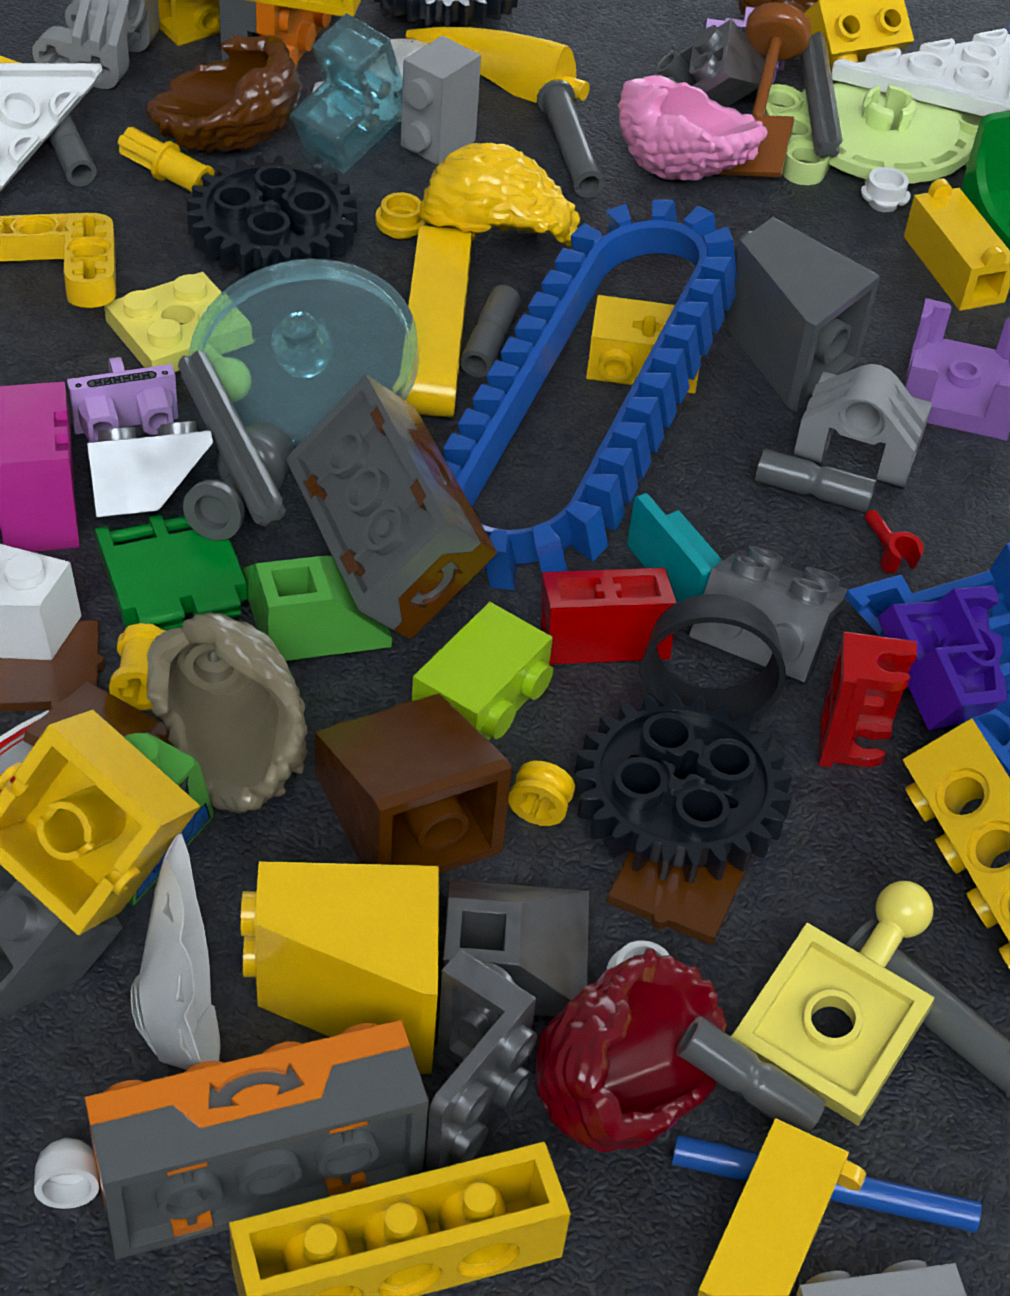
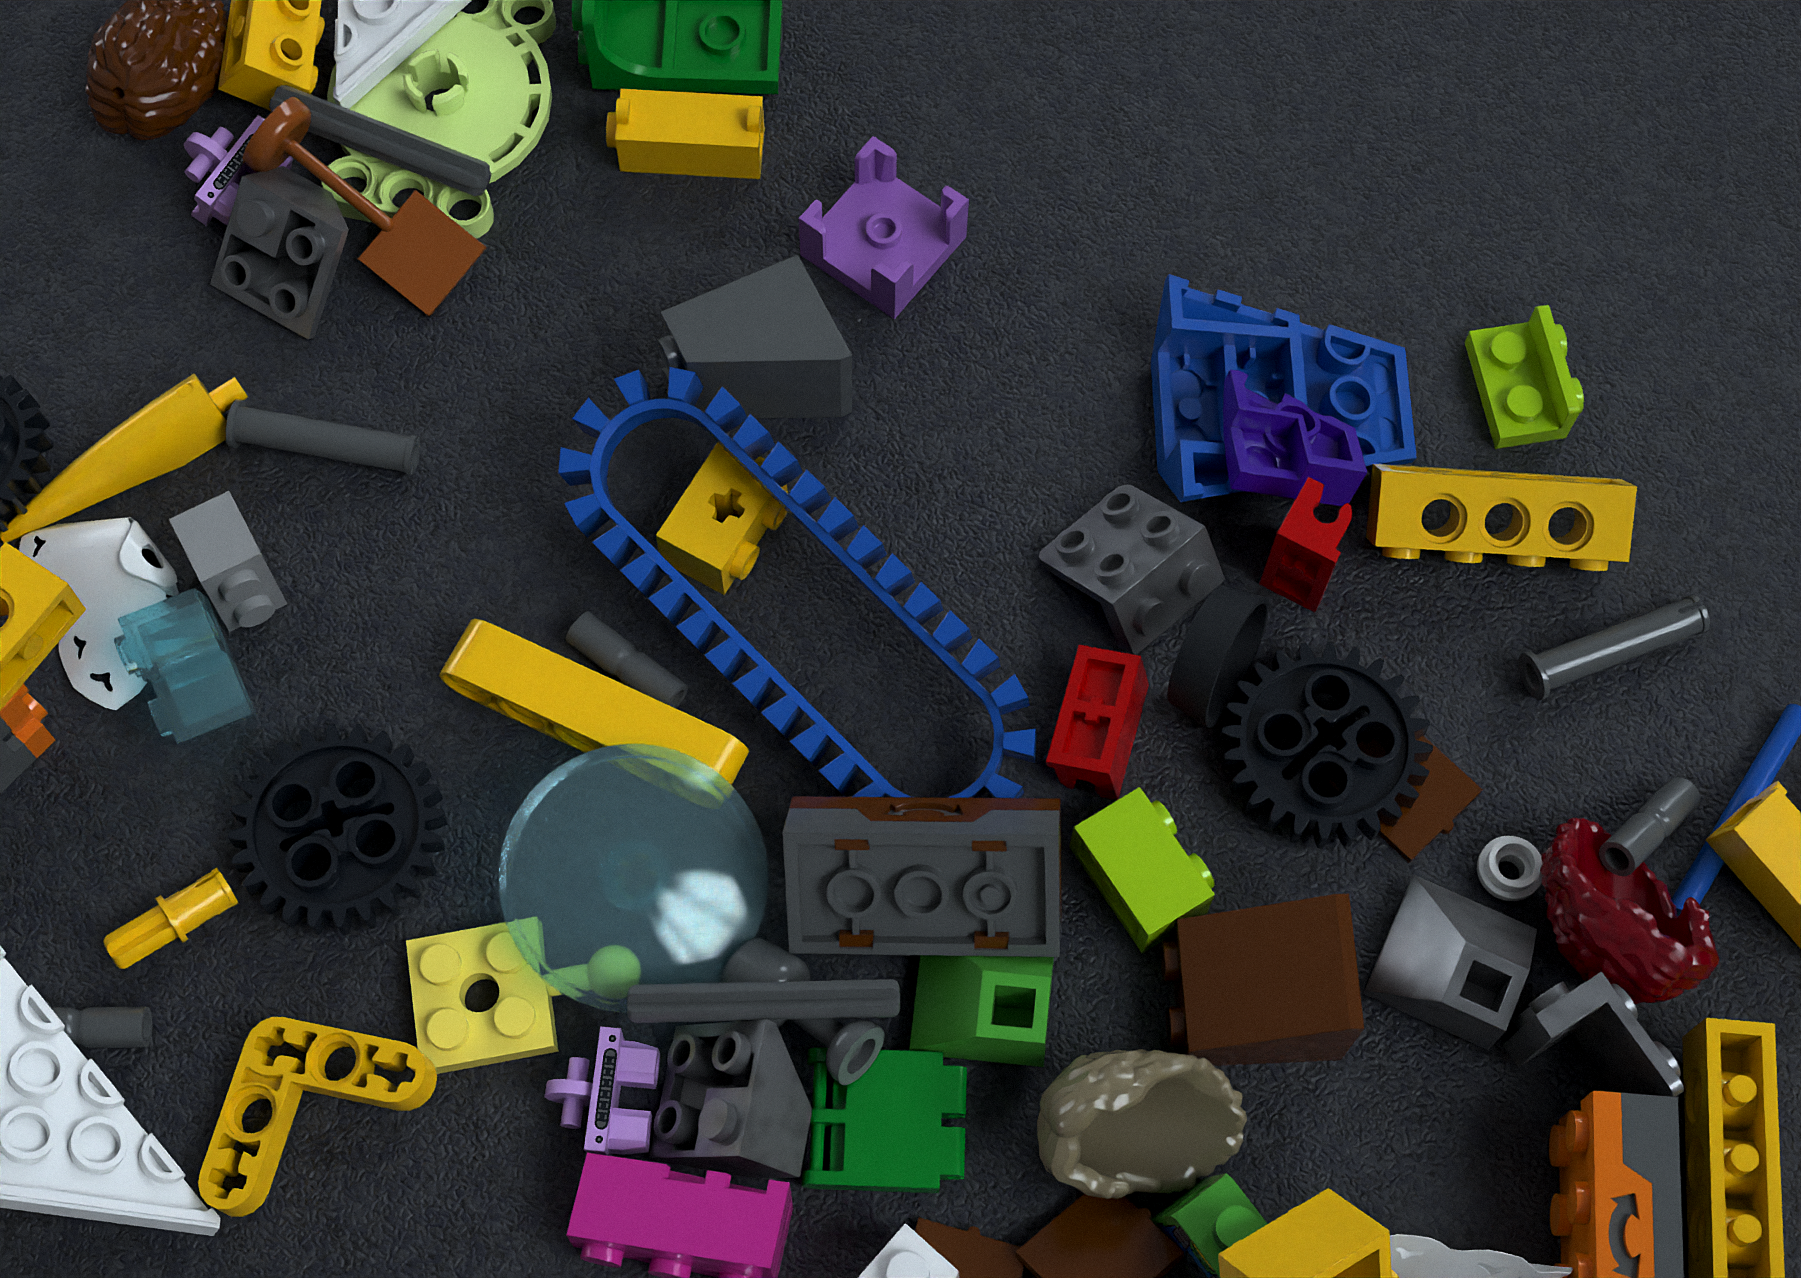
camera: 65 degrees left, 20 degrees up
(130, 679) = (1014, 1190): yellow bush -> none
(230, 100) = (114, 808): reddish brown hair -> none
(346, 946) = (1456, 1099): yellow slope -> none
(399, 216) = (384, 668): yellow plate -> none
(498, 188) = (452, 576): yellow hair -> none
(541, 793) = (1294, 871): yellow bush -> none
(671, 544) = (1040, 619): teal panel -> none
(682, 132) = (404, 312): bright pink hair -> none
(822, 482) = (967, 449): dark grey piece -> none
(830, 974) = (1572, 719): light yellow plate -> none
(870, 408) = (936, 368): light grey piece -> none
(886, 189) = (550, 140): white plate -> none
(895, 544) = (1083, 416): red hand -> none

